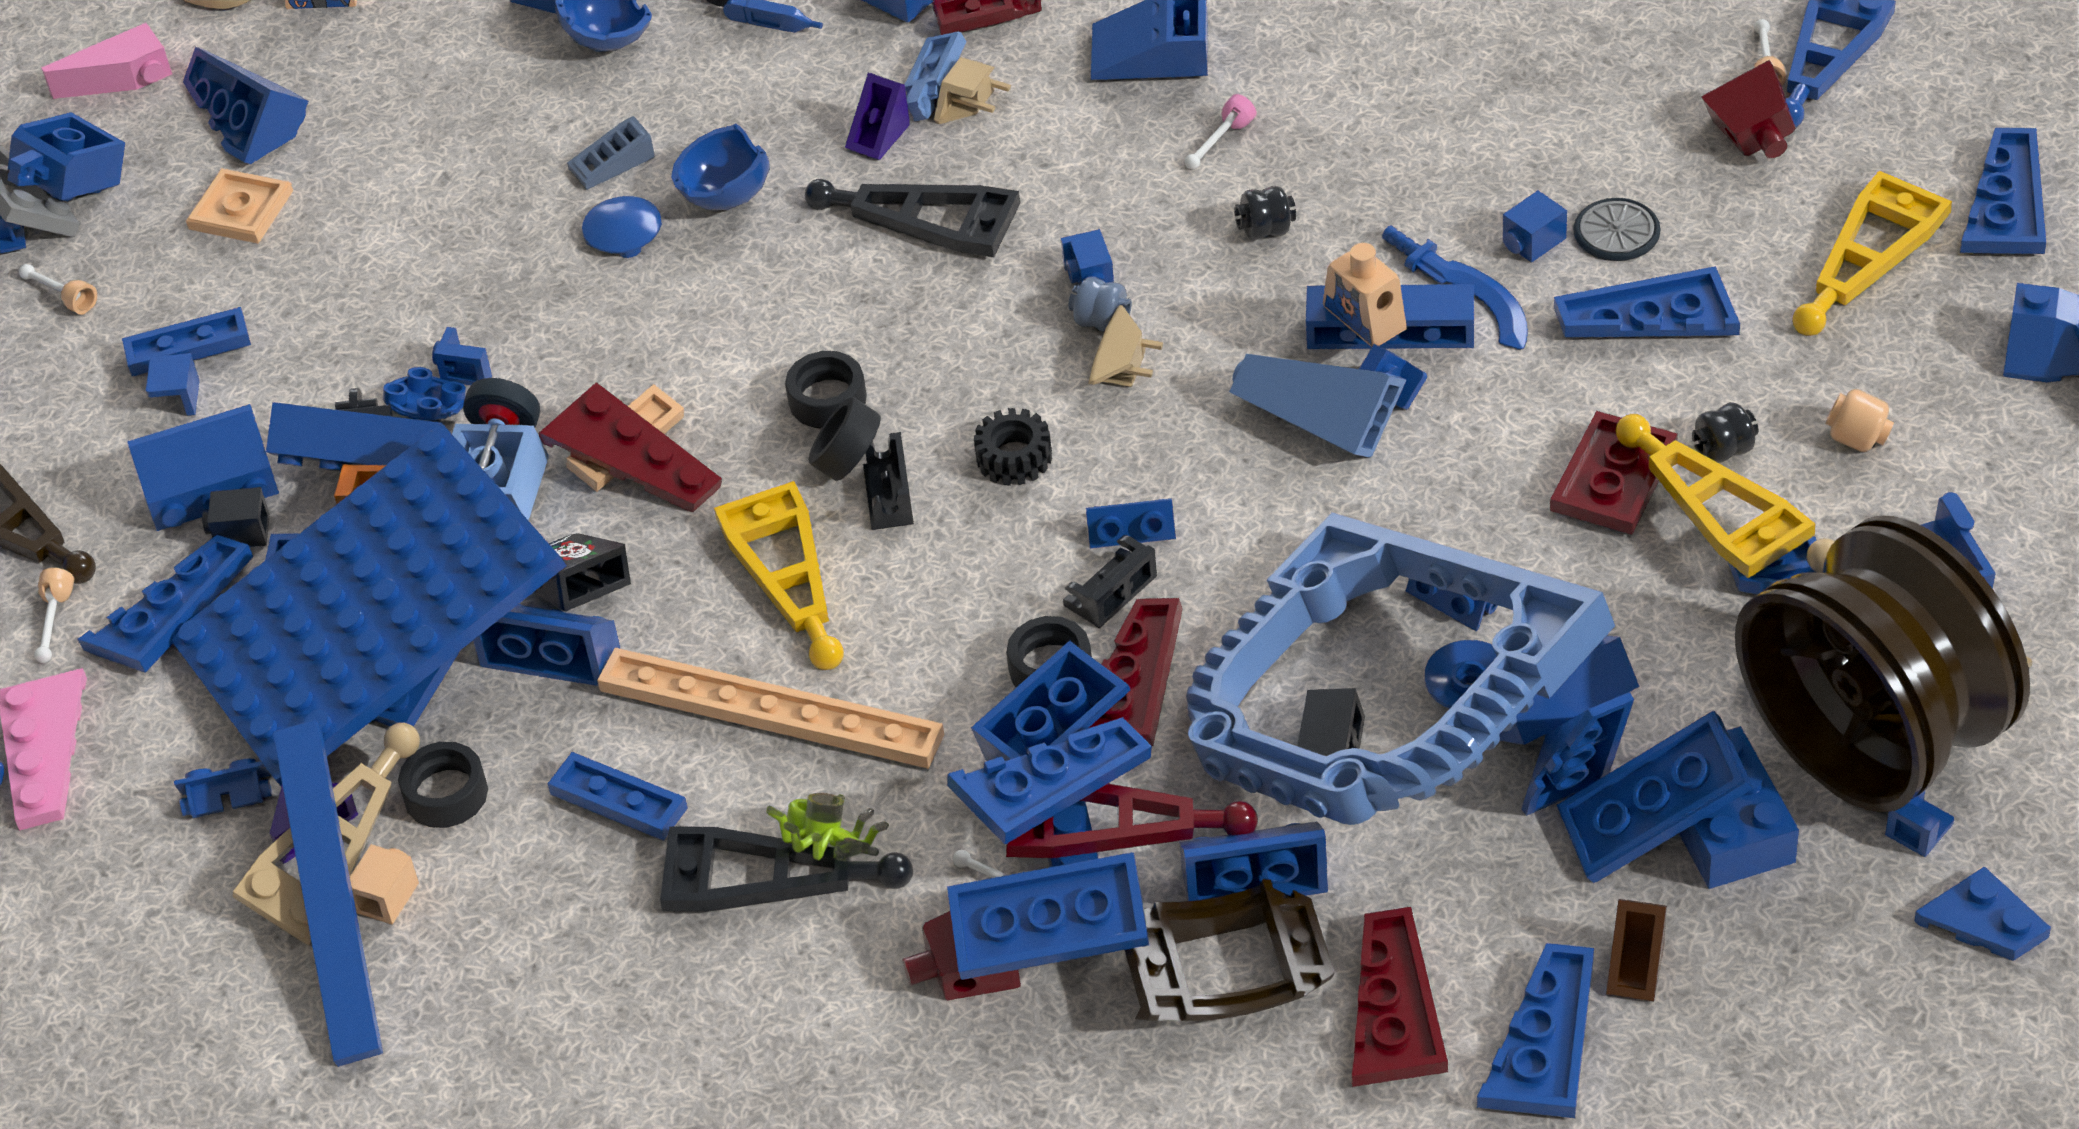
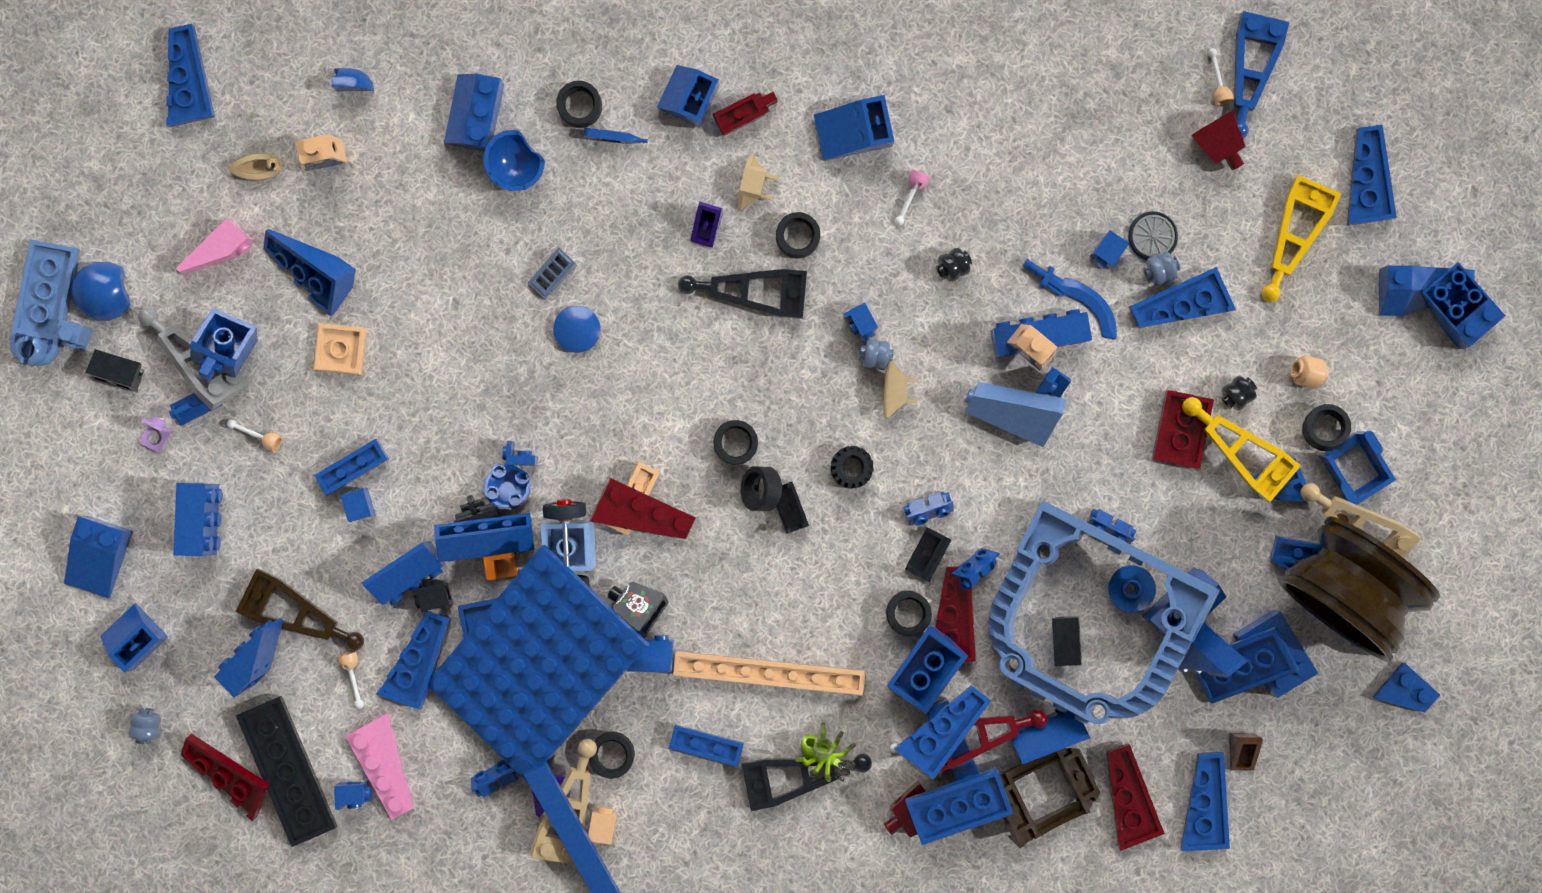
camera: 20 degrees left, 40 degrees up
(721, 169) = (627, 287): blue cylinder -> none
(763, 516) = (728, 540): yellow plate -> none
(929, 70) = (728, 174): medium blue hinge -> none
(1026, 173) = (798, 217): none -> black tyre
(1174, 597) = (981, 562): none -> blue hinge
(1619, 257) = (1161, 268): none -> sand blue piece
(1877, 477) = (1332, 410): none -> black tyre

